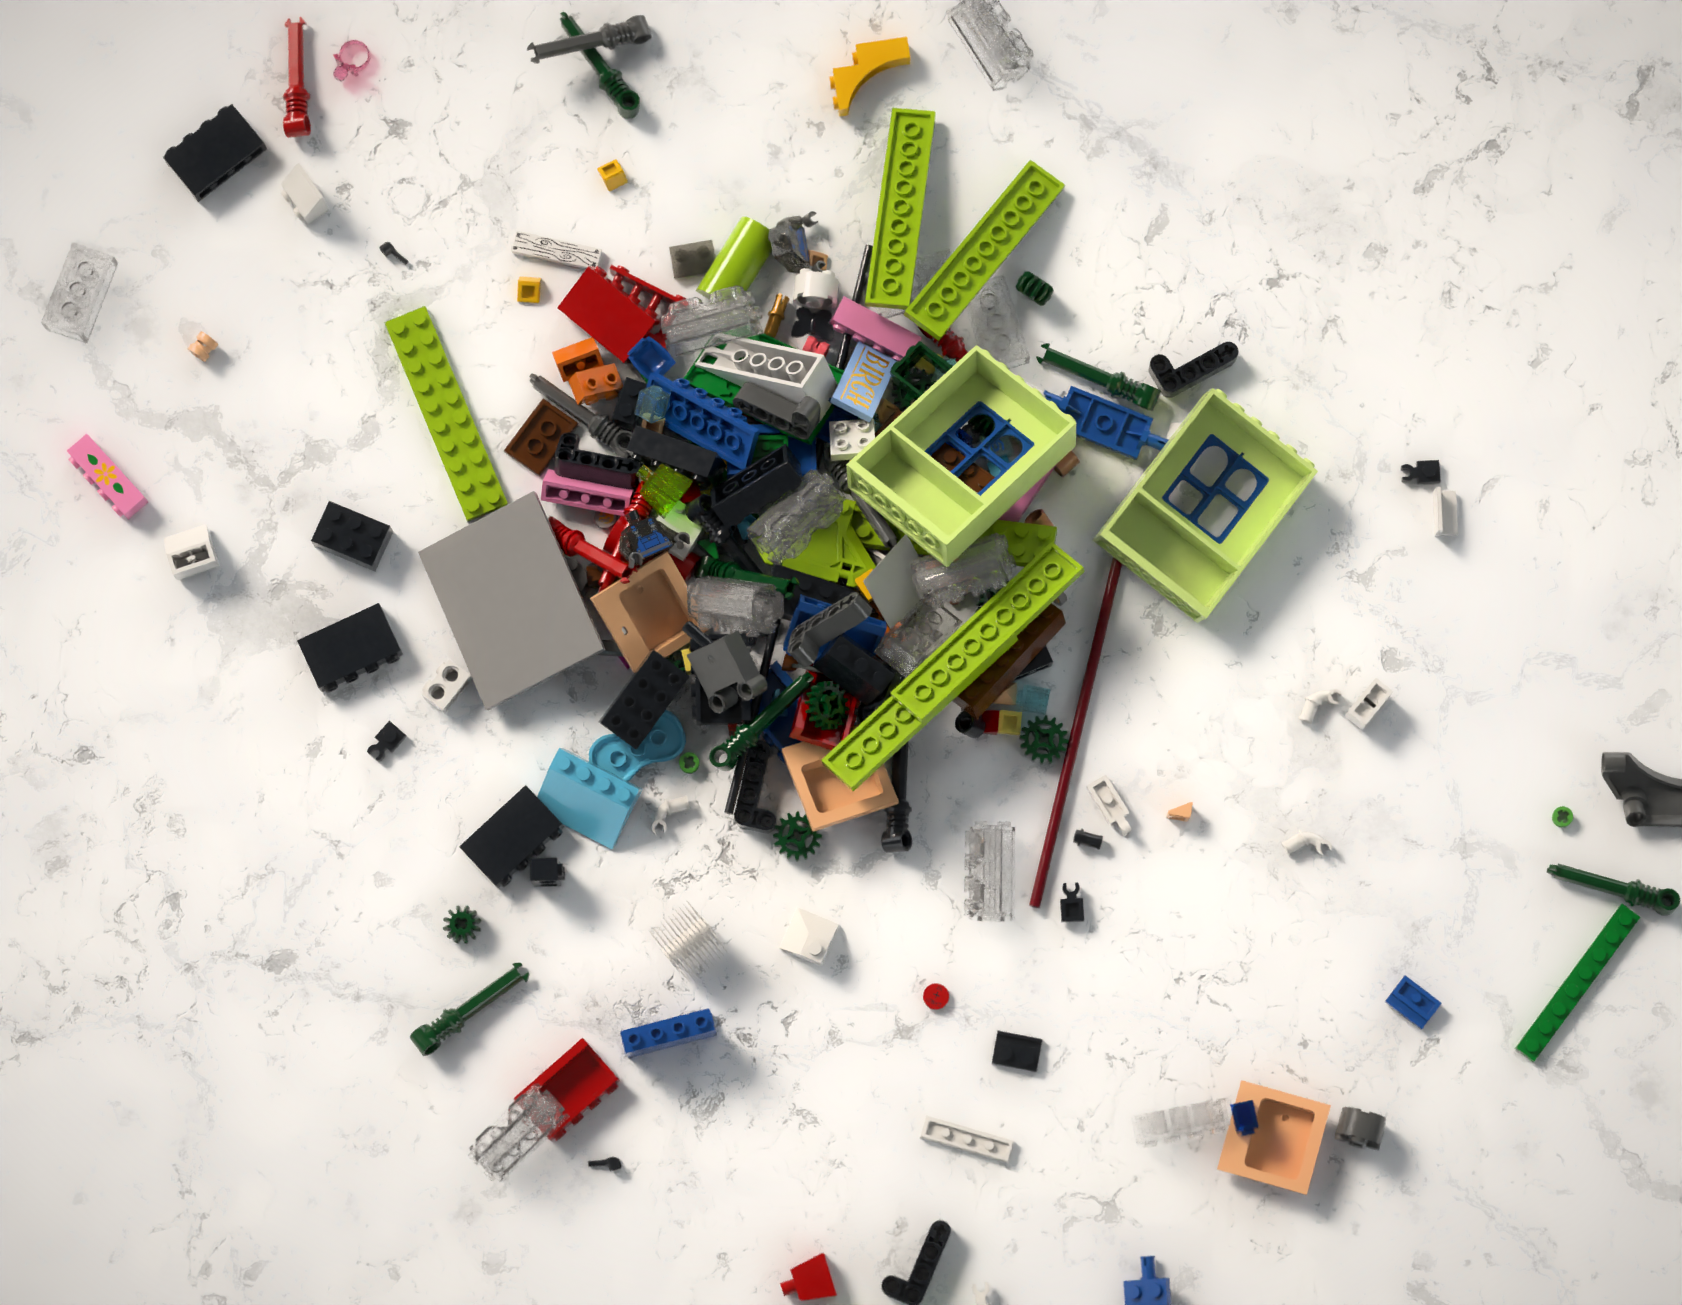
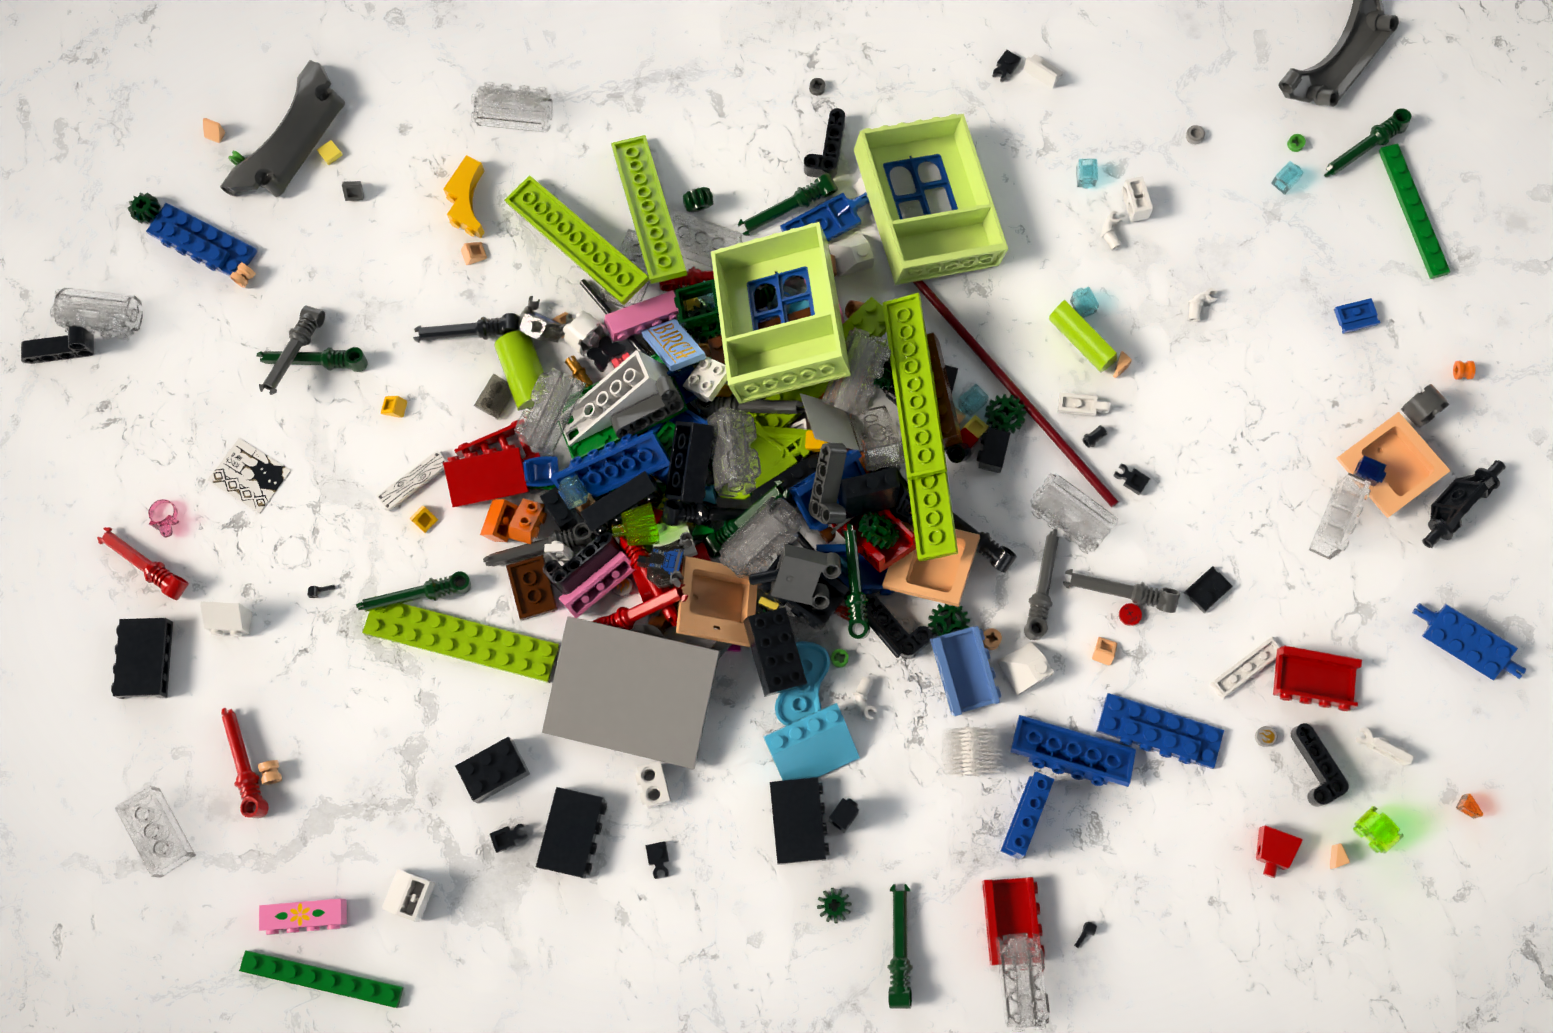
camera: 50 degrees left, 5 degrees down
(68, 536) = (321, 979): none -> green plate
(181, 332) = (247, 779): none -> red piece
(302, 594) = (505, 838): none -> black plate
(448, 100) = (249, 475): none -> sticker
(468, 351) = (431, 589): none -> dark green piece
(588, 437) = (559, 551): none -> white plate
(749, 195) = (483, 328): none -> black piece
(761, 1034) = (1073, 752): none -> blue plate
(762, 882) = (965, 670): none -> medium blue panel
(813, 889) = (989, 642): none -> light nougat wheel
(818, 122) = (473, 252): none -> light nougat slope
(843, 1101) = (1160, 731): none -> blue plate
(882, 997) = (1104, 651): none -> light nougat slope
(884, 904) = (1041, 601): none -> dark grey piece
(913, 1200) = (1265, 736): none -> light grey tile
(972, 1016) = (1165, 599): none -> dark grey piece
(998, 754) = (994, 450): none -> black piece
(1003, 1208) = (1316, 678): none -> red panel
(1095, 474) = (852, 255): none -> white slope
(1179, 755) = (1083, 336): none -> lime brick
(1219, 731) = (1084, 302): none -> clear light blue brick
(1248, 301) = (814, 91): none -> dark grey bush
(1291, 1223) = (1458, 500): none -> black plate
(1361, 636) = (1086, 173): none -> clear light blue brick
(1434, 1143) = (1464, 370): none -> orange wheel
(1492, 711) = (1195, 134): none -> light grey tile
(1513, 833) = (1287, 177): none -> clear light blue brick

